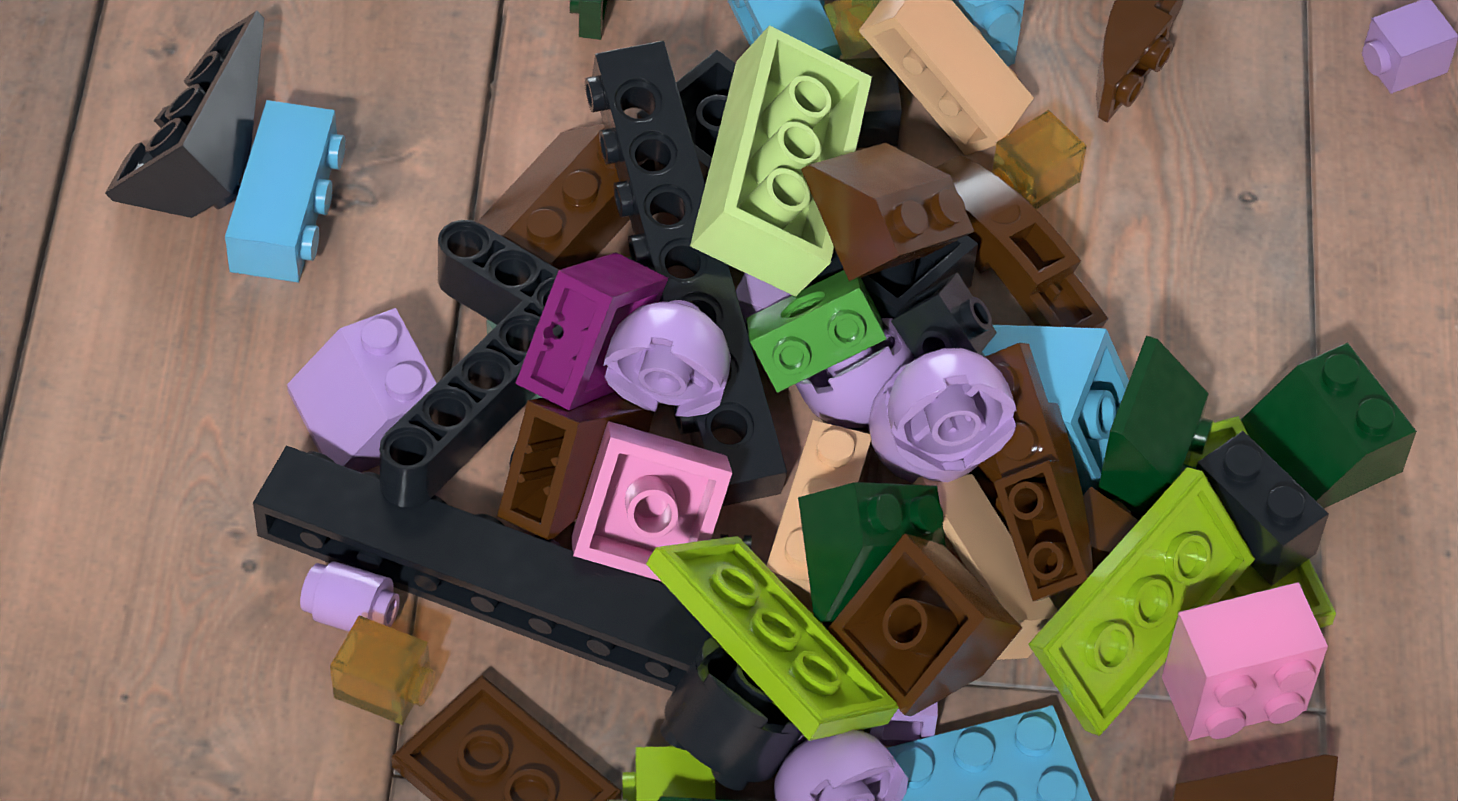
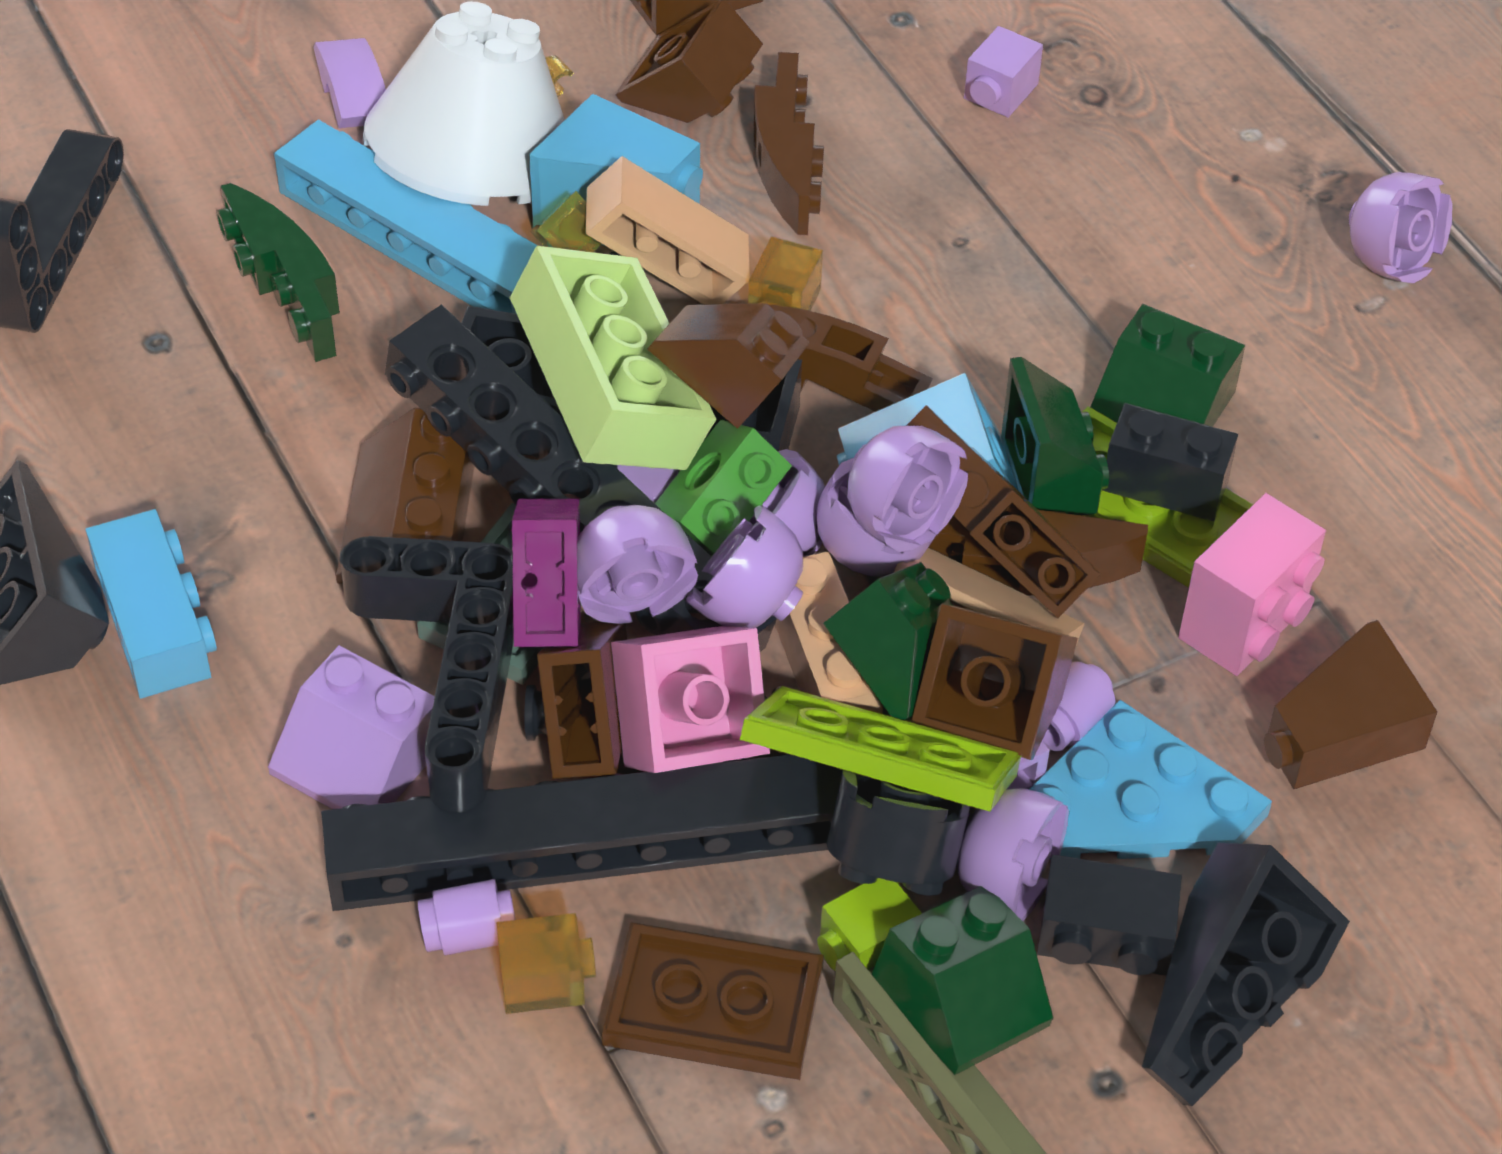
camera: 30 degrees left, 5 degrees down
(772, 423) = (752, 574): none -> lavender cylinder
(945, 319) = (828, 429): black brick -> none
(1008, 688) = (1084, 702): none -> lavender brick
(1126, 611) = (1142, 577): lime tile -> none

